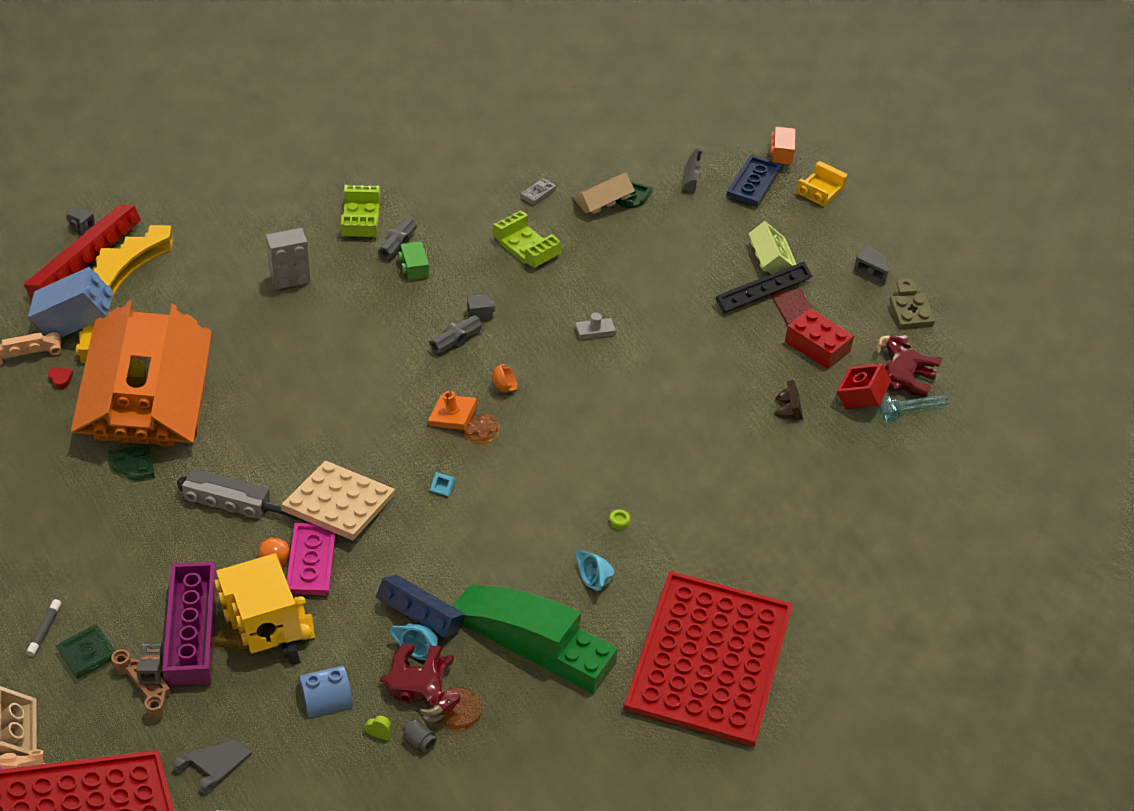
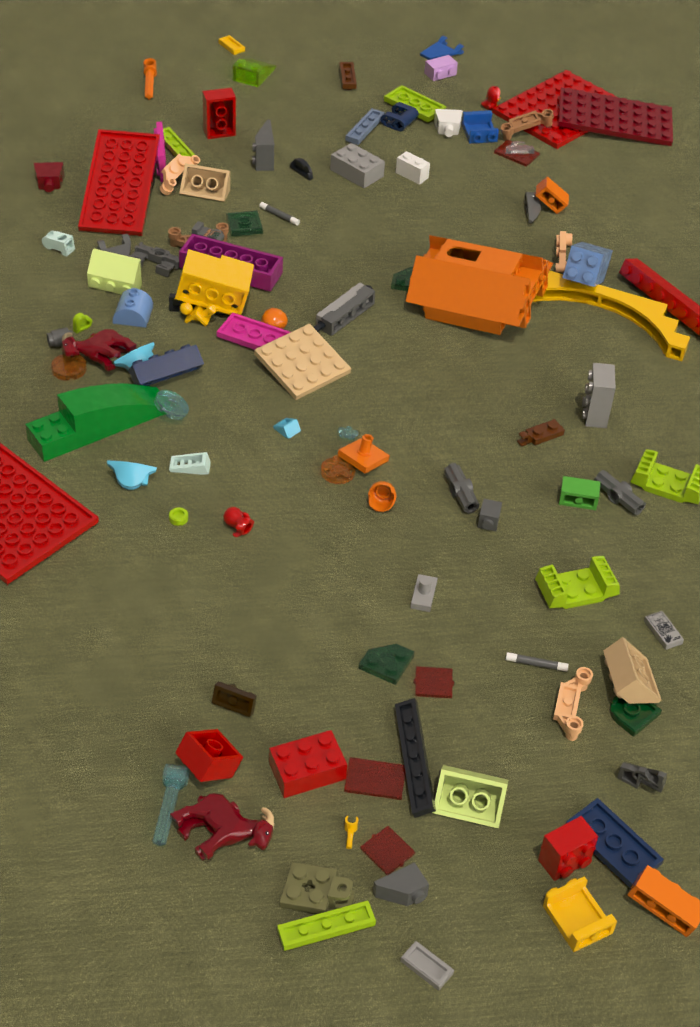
camera: 115 degrees right, 0 degrees up
(199, 727) = (163, 257): none -> dark grey piece
(277, 729) = (113, 272): none -> yellowish green slope
(342, 304) = (541, 433): none -> reddish brown plate
(423, 437) = (347, 432): none -> clear light blue plant
(475, 578) = (171, 404): none -> clear light blue tile
(545, 522) = (197, 463): none -> light aqua slope
(601, 467) = (237, 519): none -> red animal
(620, 249) = (537, 662): none -> dark grey bar
(649, 224) = (568, 702): none -> light nougat plate
(682, 301) = (433, 682): none -> clear red piece
(684, 329) = (387, 662): none -> clear green plate
(784, 191) = (568, 848): none -> red brick
(846, 305) = (350, 828): none -> yellow hand
(847, 285) = (387, 850): none -> clear red piece
(913, 244) = (427, 965): none -> light grey tile
(934, 295) = (326, 925): none -> lime plate

